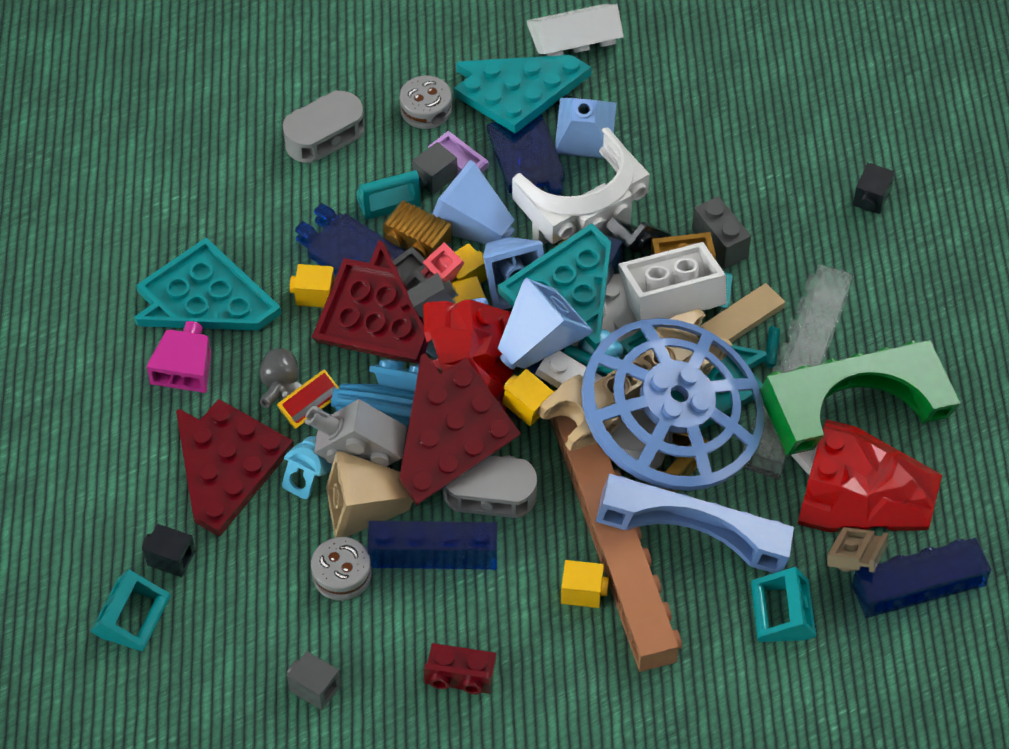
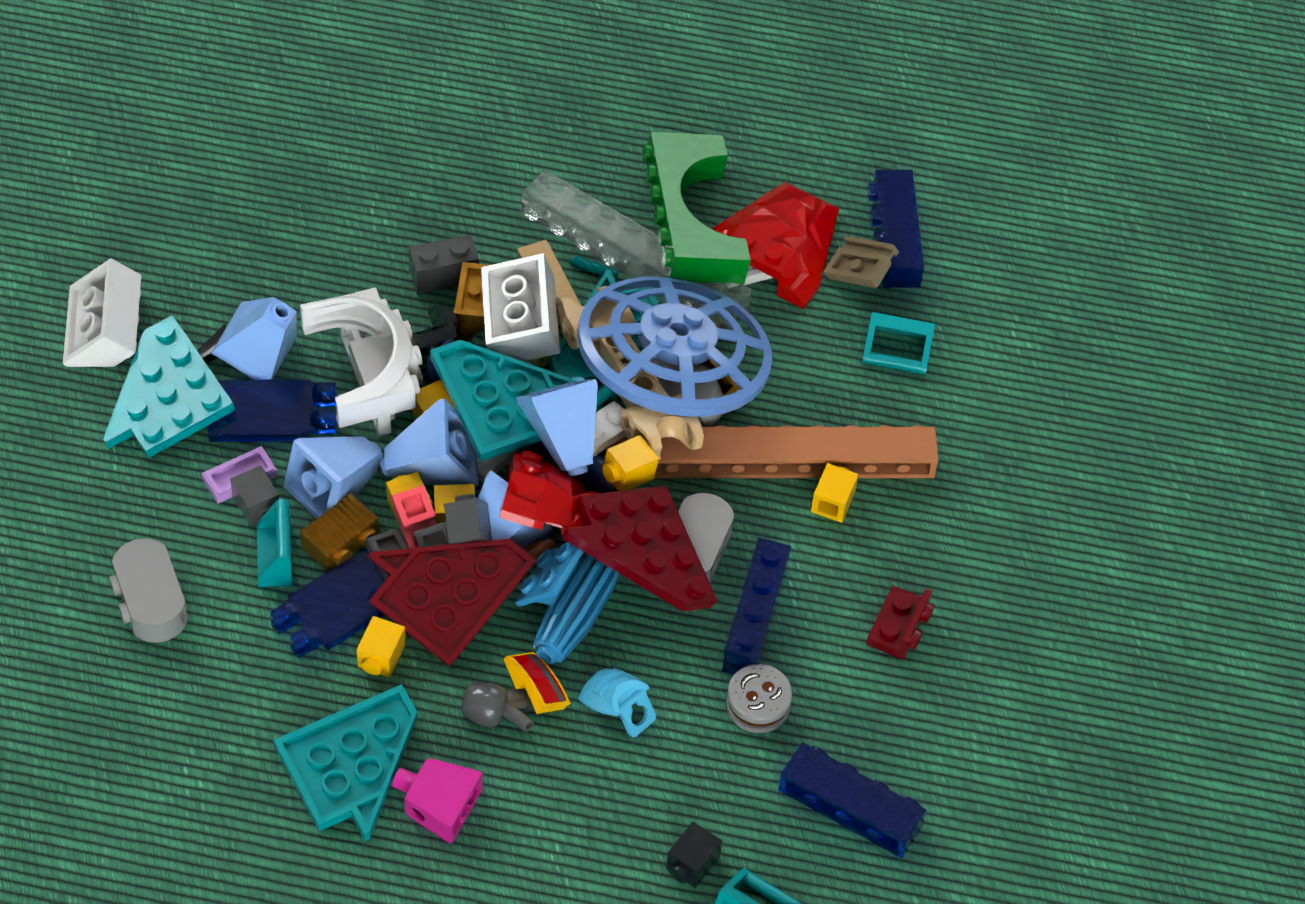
camera: 80 degrees left, 0 degrees up
(227, 462) = (586, 784): dark red wing -> none
(253, 662) = (852, 799): none -> clear blue brick
(313, 680) = (887, 749): dark grey brick -> none
(359, 432) = (626, 633): light grey brick -> none
(363, 493) = (681, 659): tan slope -> none
(425, 102) = (152, 484): light grey head -> none
(756, 540) = (828, 338): medium blue arch -> none
(873, 188) = (431, 127): black brick -> none

